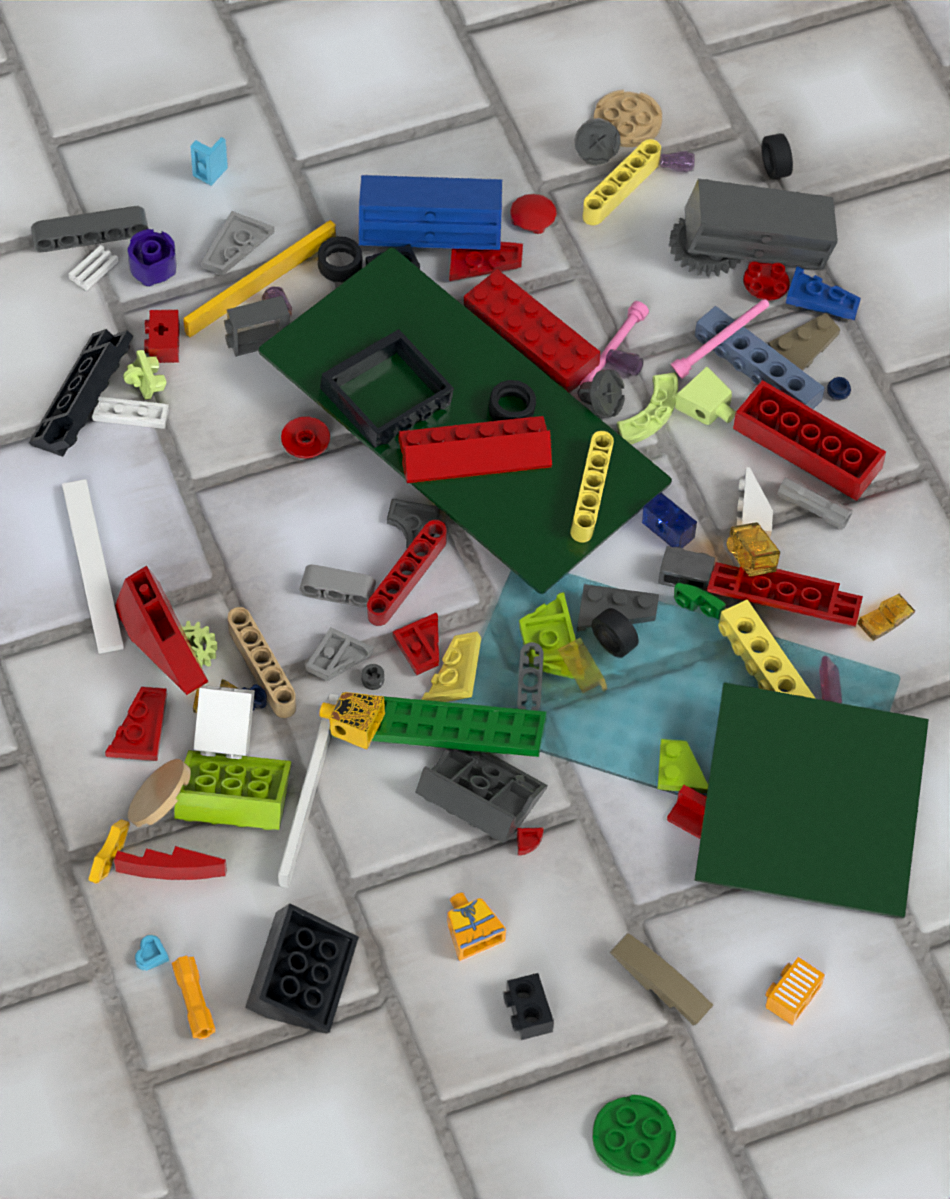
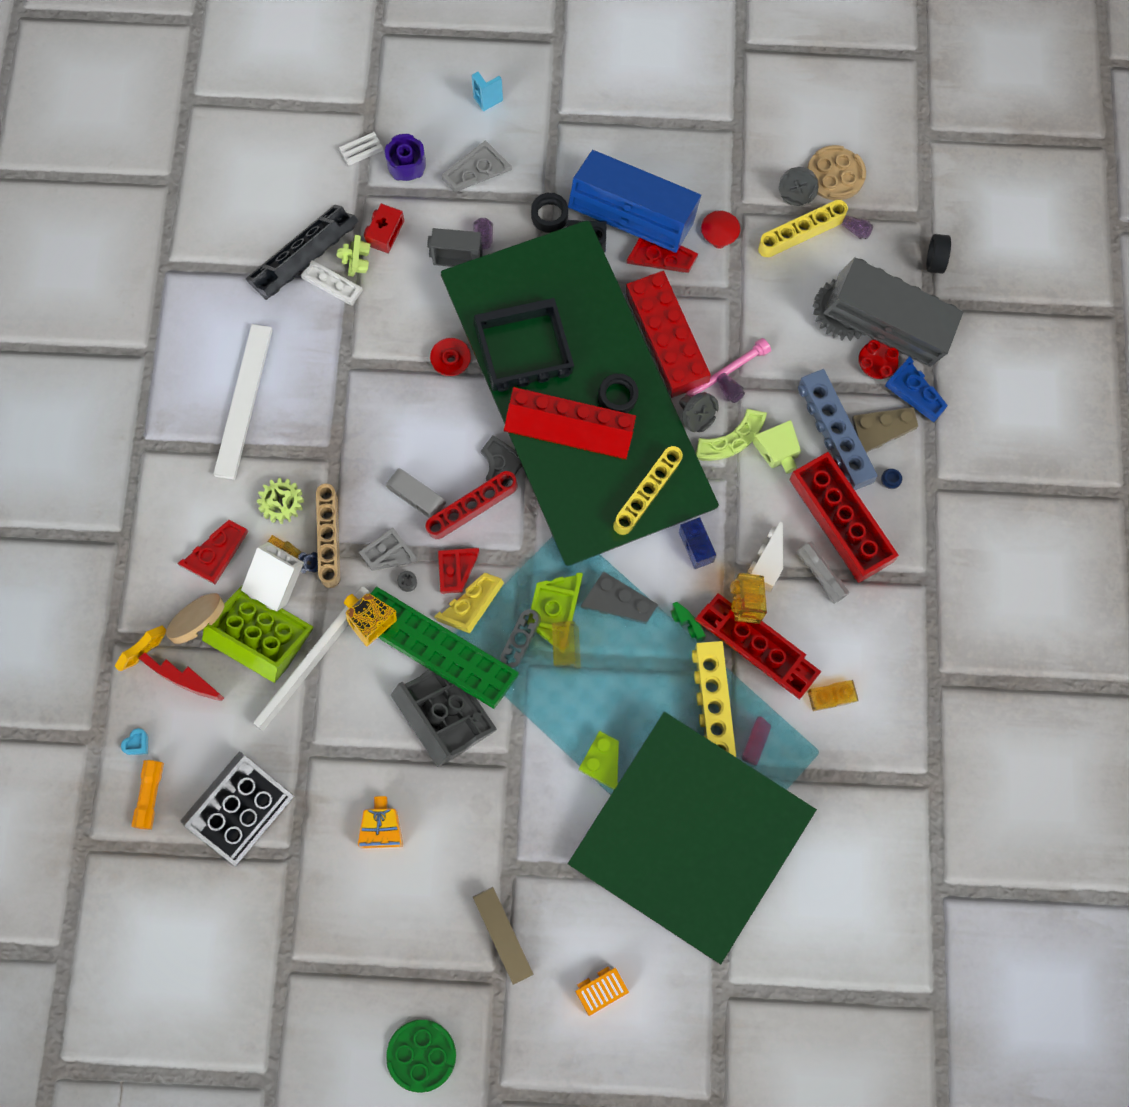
camera: 25 degrees right, 15 degrees up
(88, 228) = (372, 115): dark grey beam -> none
(157, 630) = (259, 481): red wedge -> none
(258, 279) = (479, 206): yellow tile -> none
(528, 839) = (460, 769): red tile -> none
(534, 1005) = (396, 914): black brick -> none
(615, 632) = (604, 626): black tyre -> none
(684, 365) = (773, 410): bright pink piece -> none
(686, 568) = (691, 589): flat silver brick -> none
(688, 811) = (593, 799): red panel -> none

